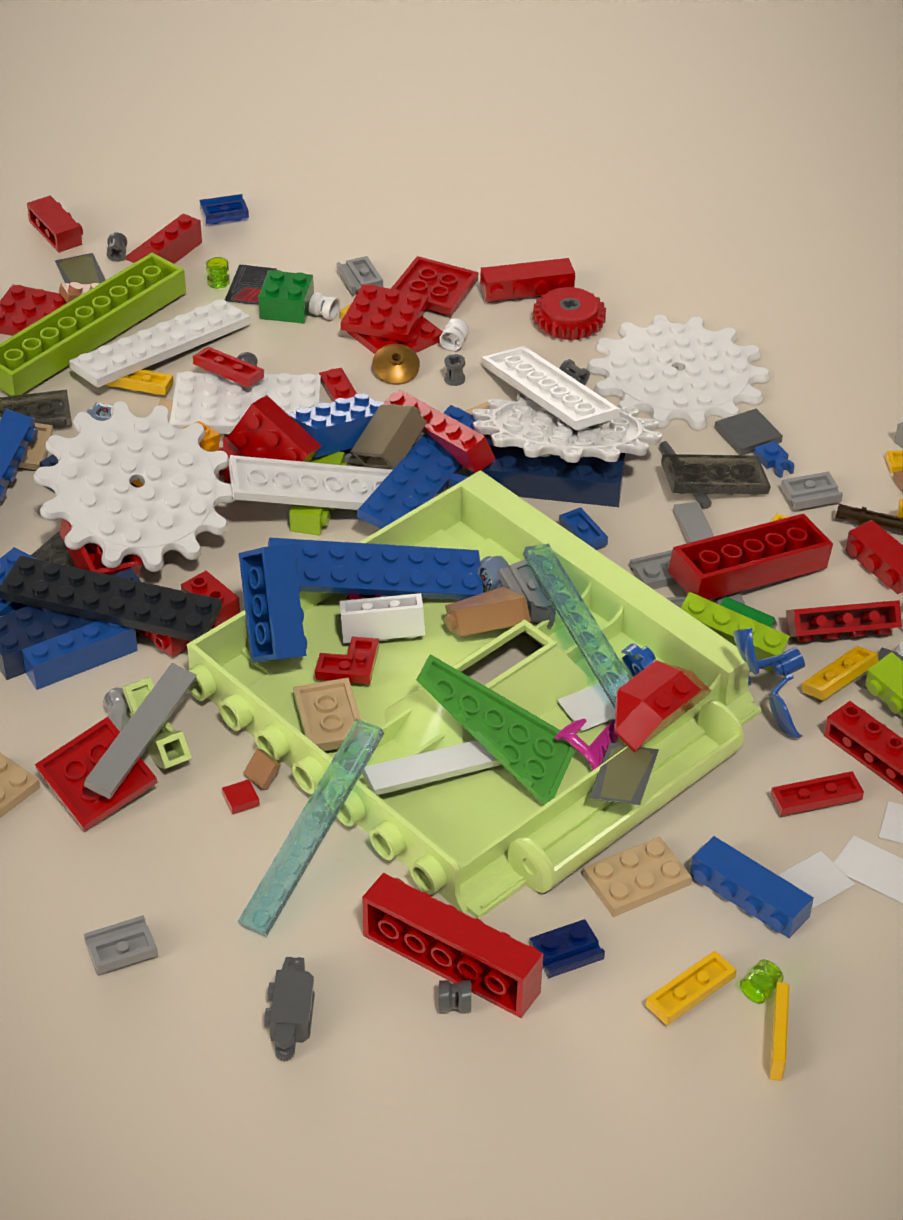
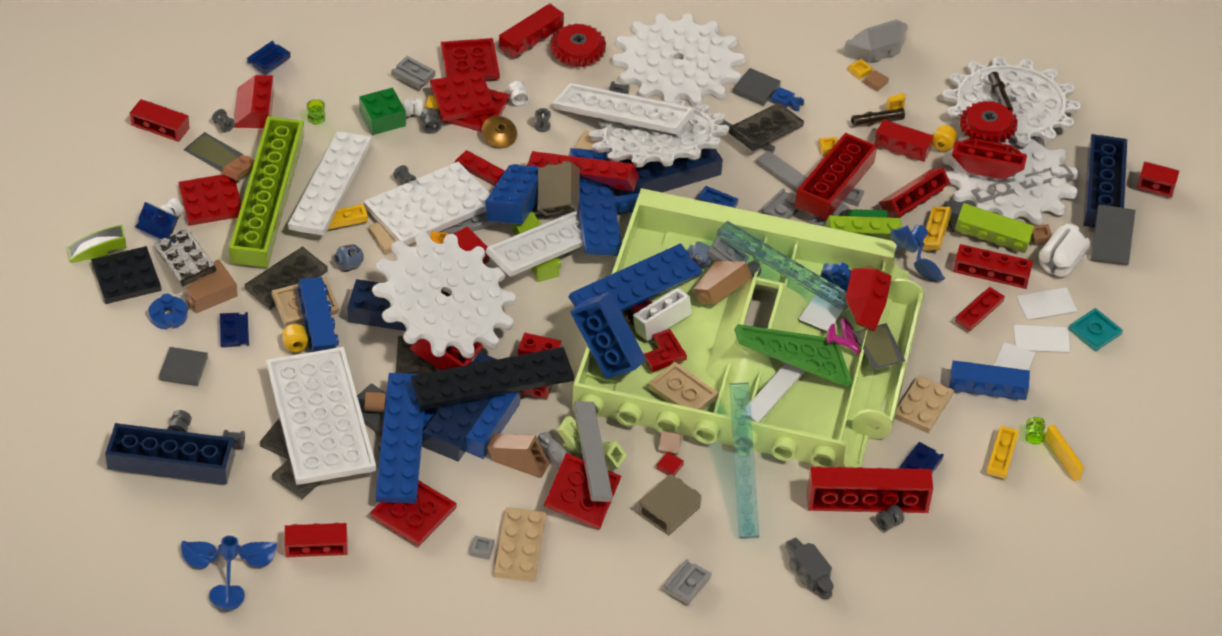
camera: 35 degrees left, 5 degrees up
(70, 697) = (519, 453): none -> medium nougat slope
(190, 841) = (669, 504): none -> dark tan brick
(228, 366) = (402, 182): red plate -> none
(247, 284) = (341, 111): black sticker -> none
(272, 434) = (492, 222): red brick -> none
(329, 325) = (430, 120): none -> dark grey wheel
(764, 595) = (854, 197): none -> light grey tile
(811, 490) = (827, 113): light grey plate -> none

